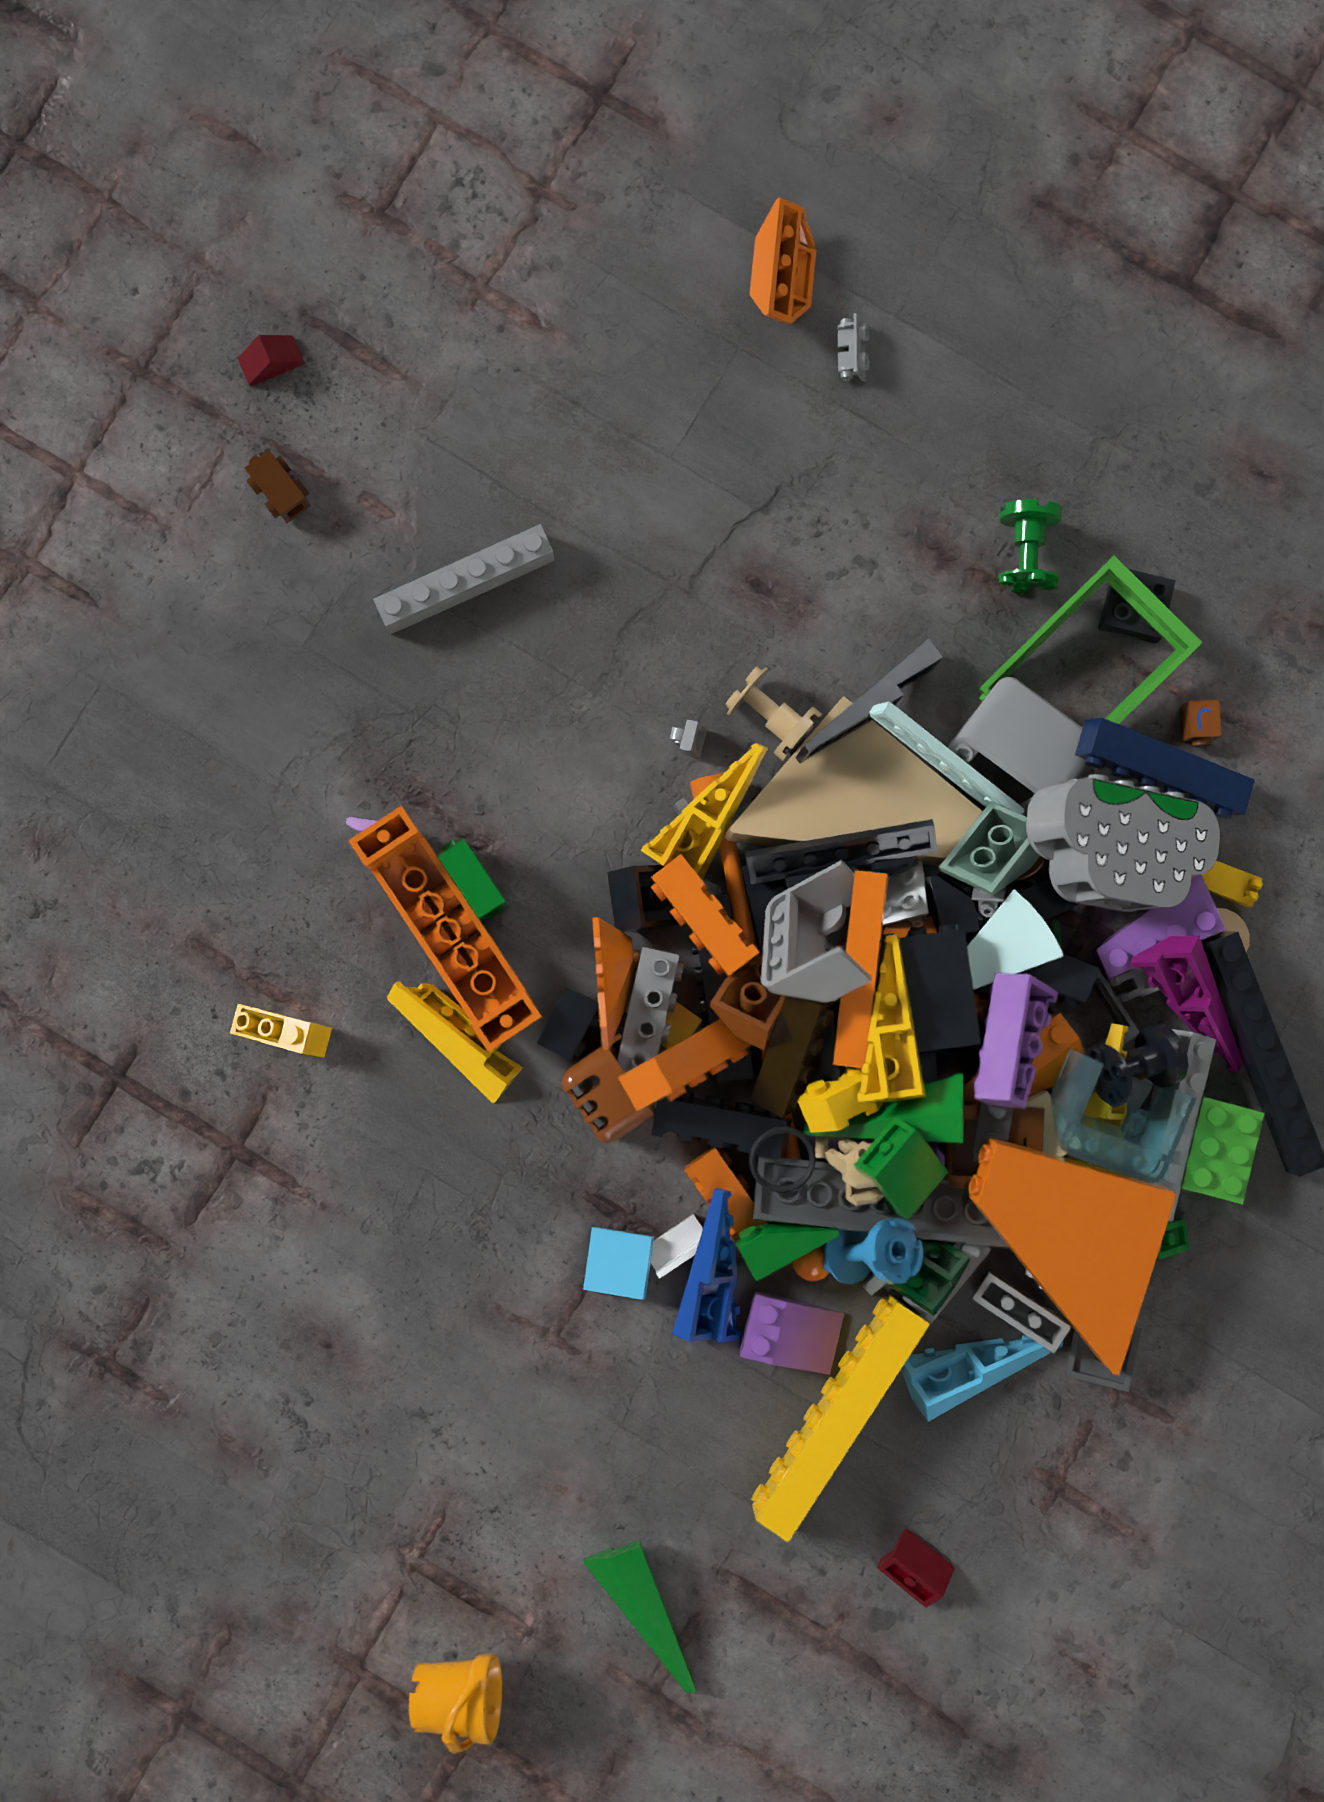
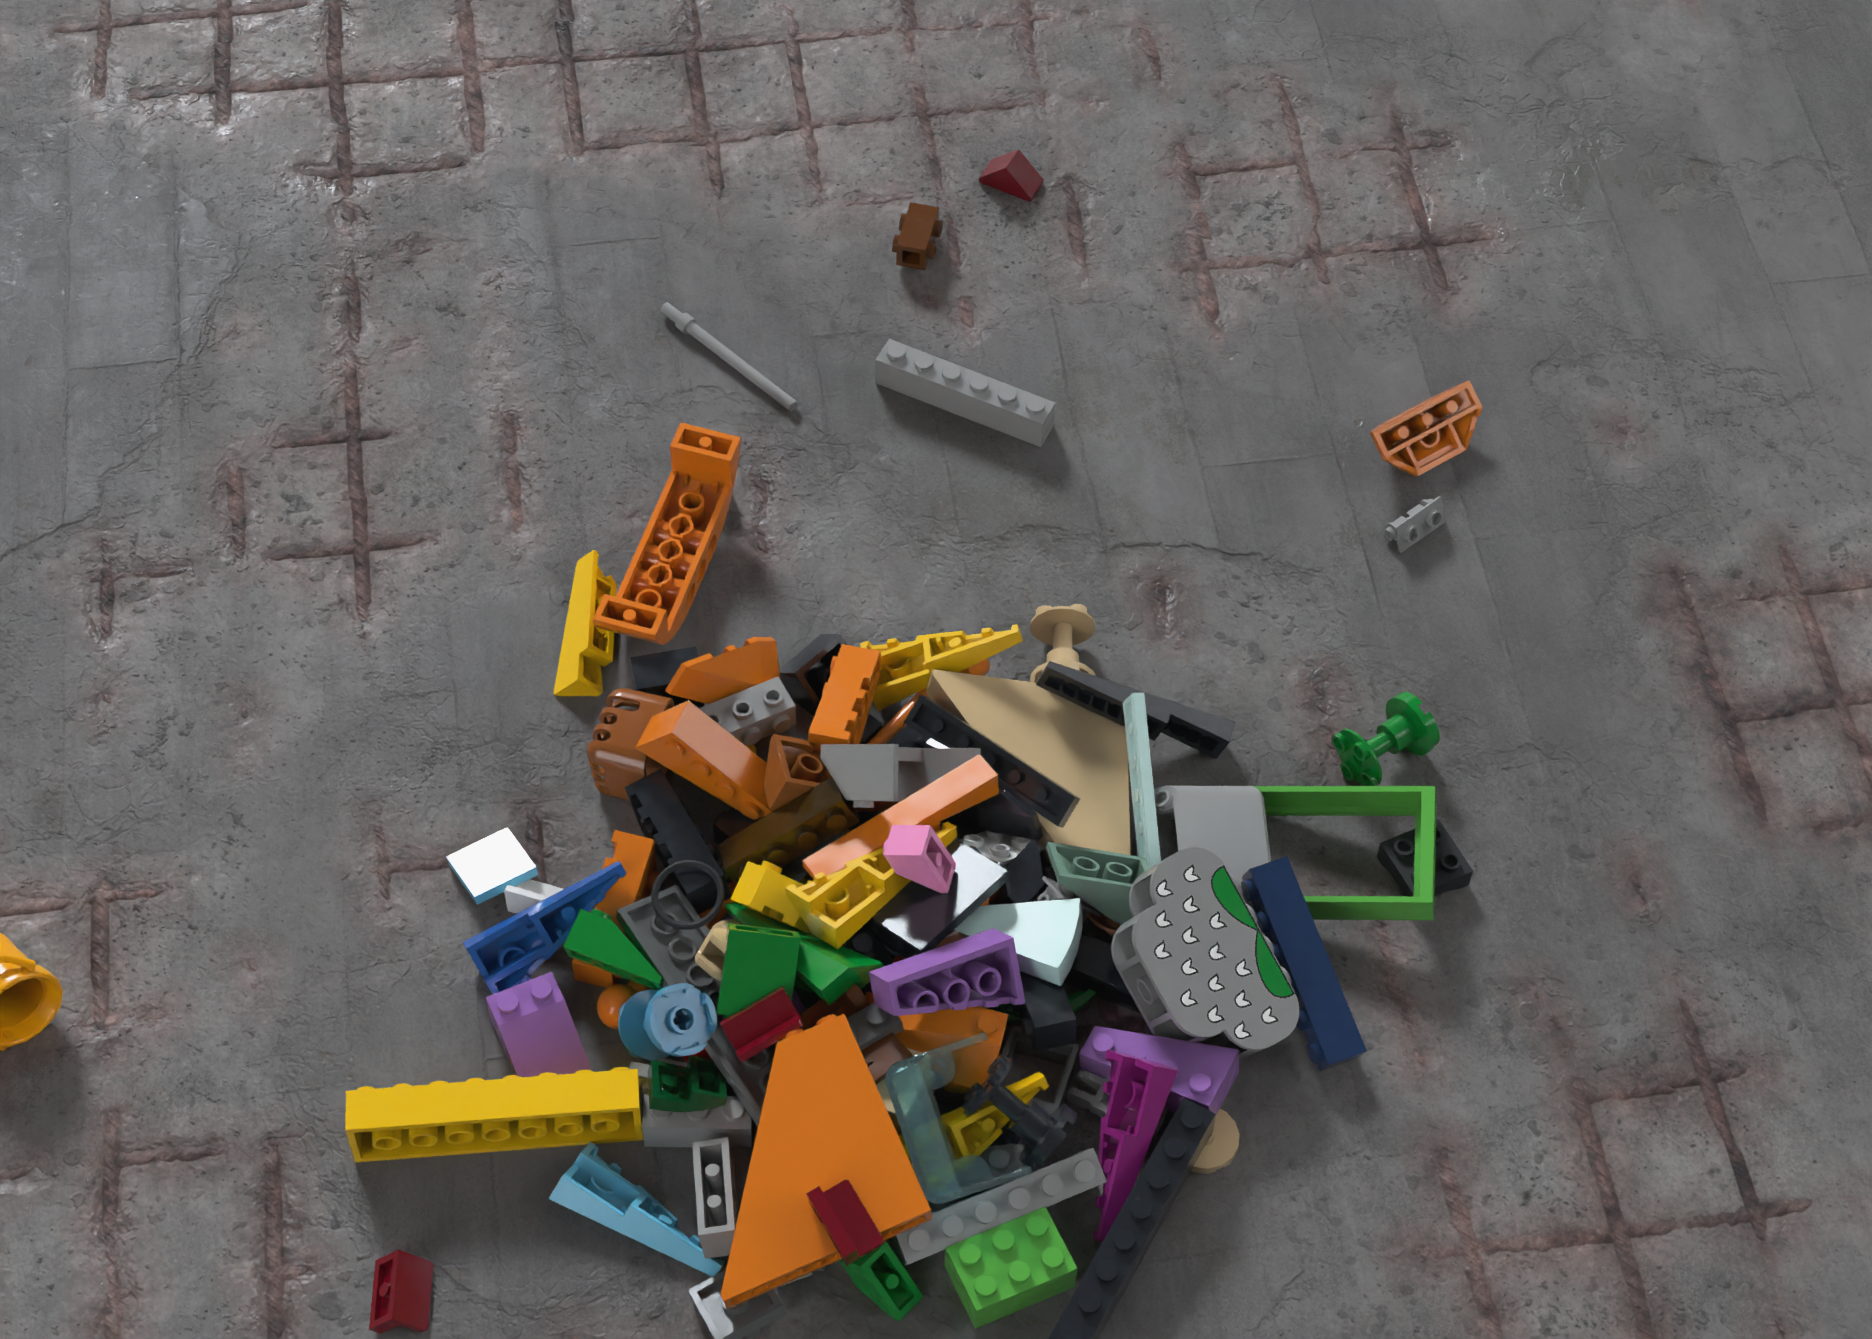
camera: 55 degrees right, 30 degrees down
(215, 735) = (688, 325): none -> light grey bar
(281, 1031) = (488, 510): yellow slope -> none
(472, 879) = (726, 546): green window -> none
(633, 1588) = (208, 1064): green wedge -> none
(690, 739) = (987, 616): light grey tile -> none
(915, 991) = (920, 856): none -> bright pink slope
(946, 1197) = (761, 1023): none -> dark red panel
(1141, 1260) = (845, 1221): none -> dark red panel
(1200, 722) = (1376, 981): dark orange brick -> none
(1233, 884) = (1259, 1103): yellow hinge -> none

